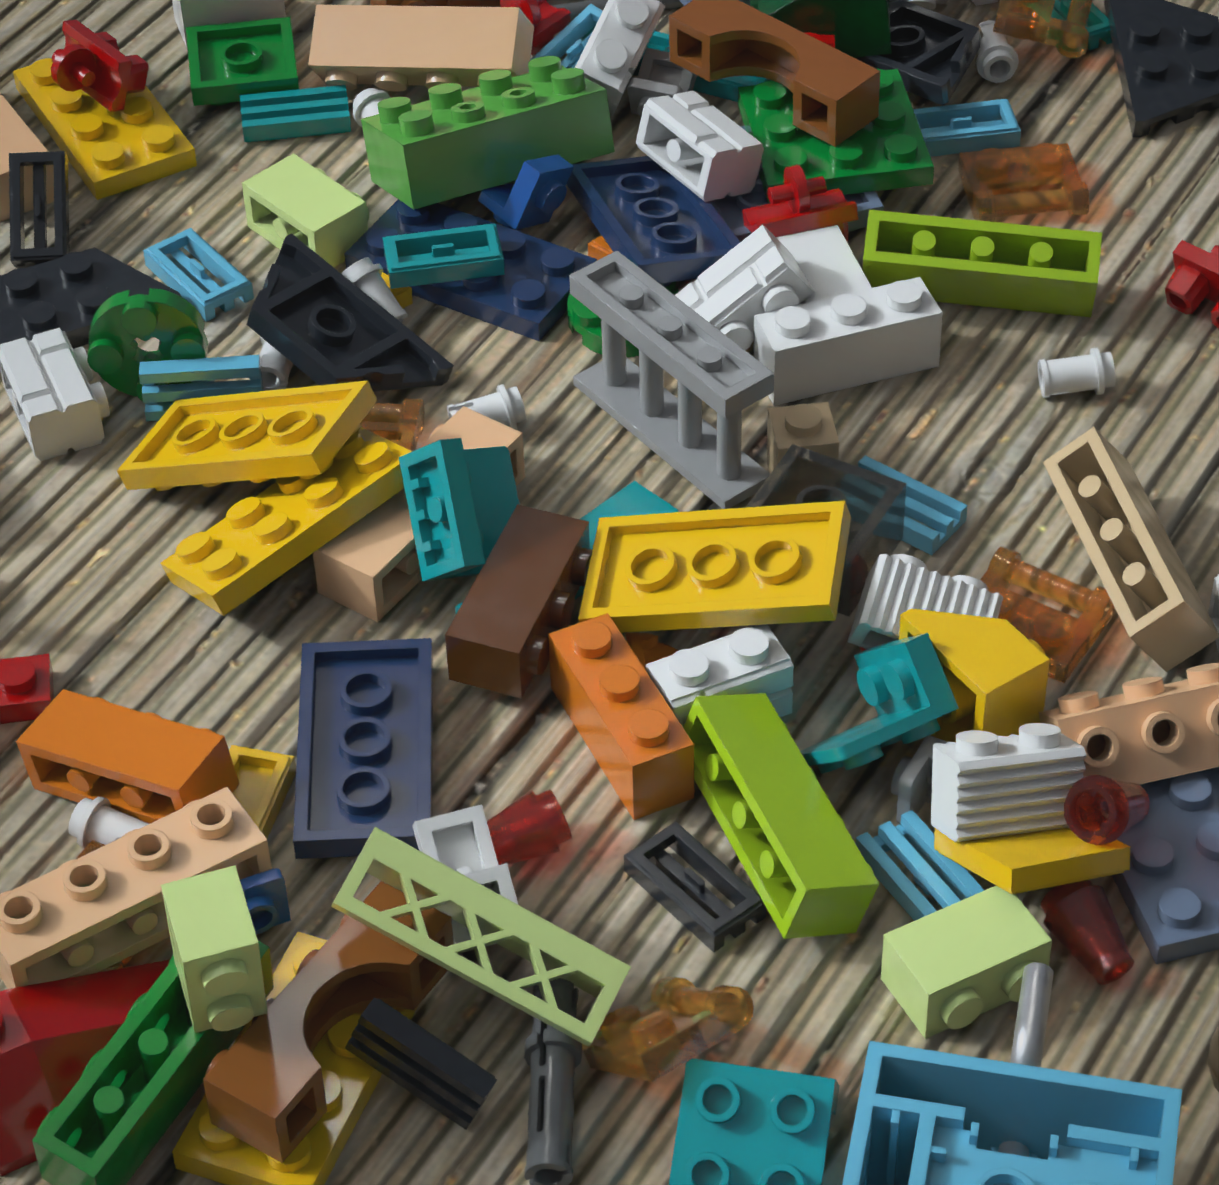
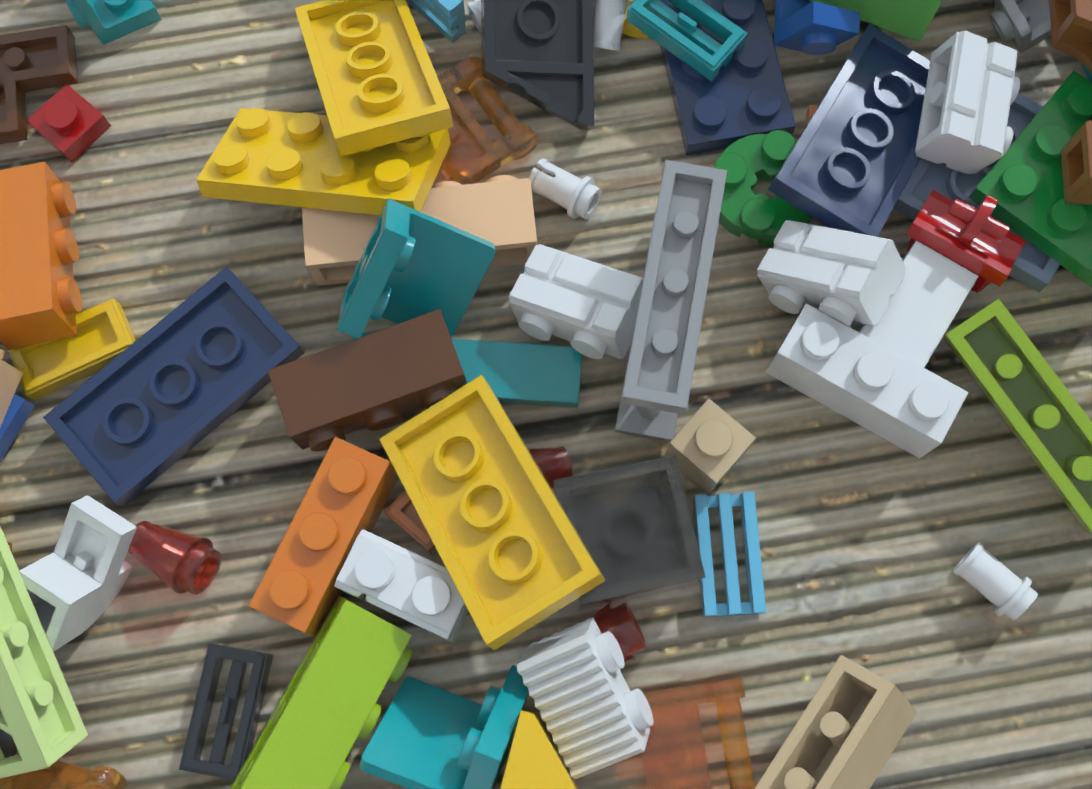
camera: 50 degrees right, 30 degrees up
(598, 447) = (576, 302): none -> white brick

